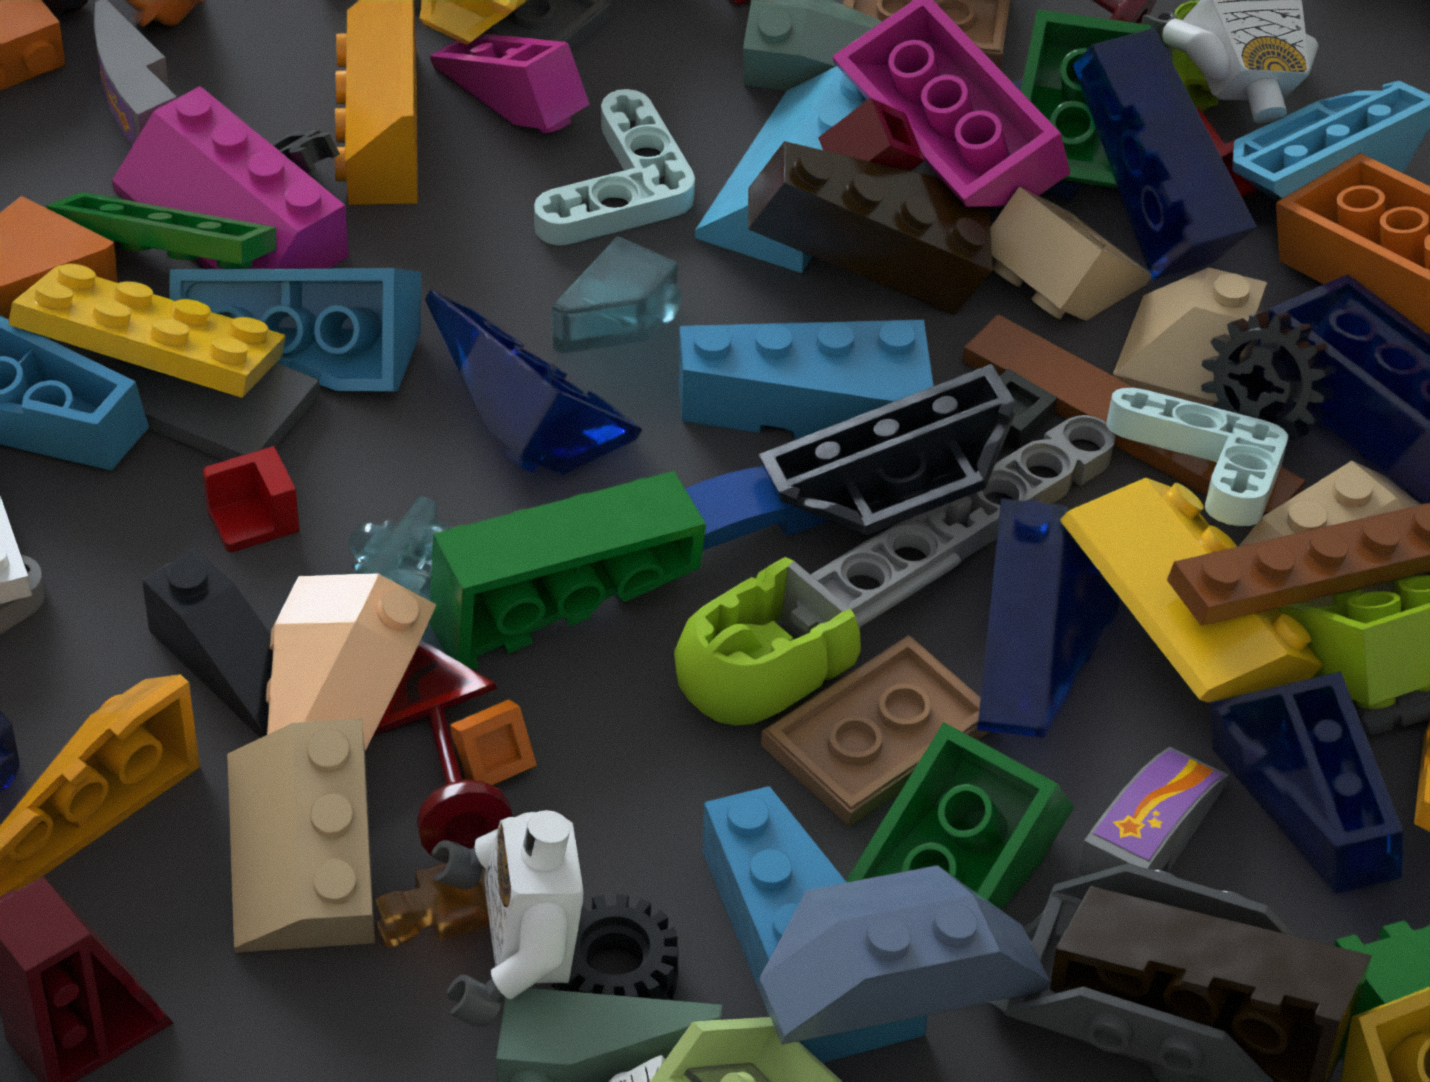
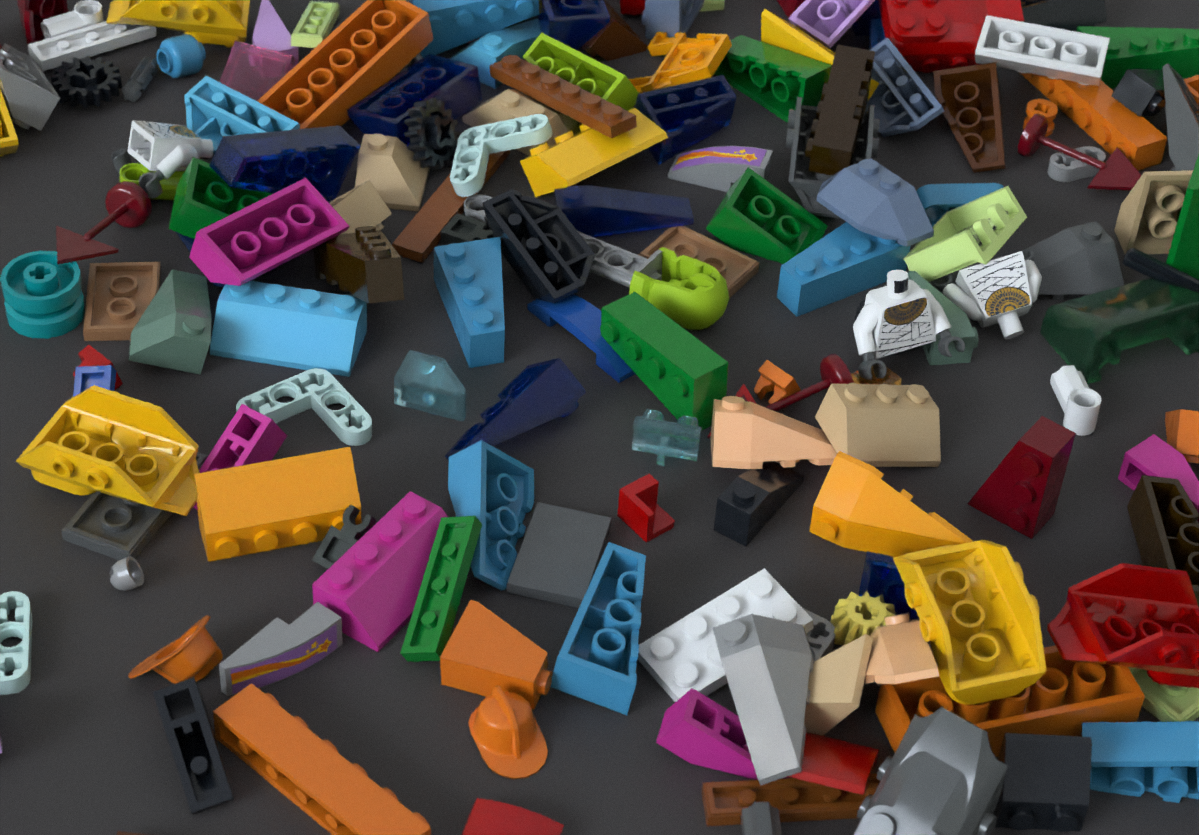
camera: 105 degrees left, 5 degrees down
(148, 329) = (548, 562): yellow plate -> none
(875, 135) = (319, 262): dark red brick -> none

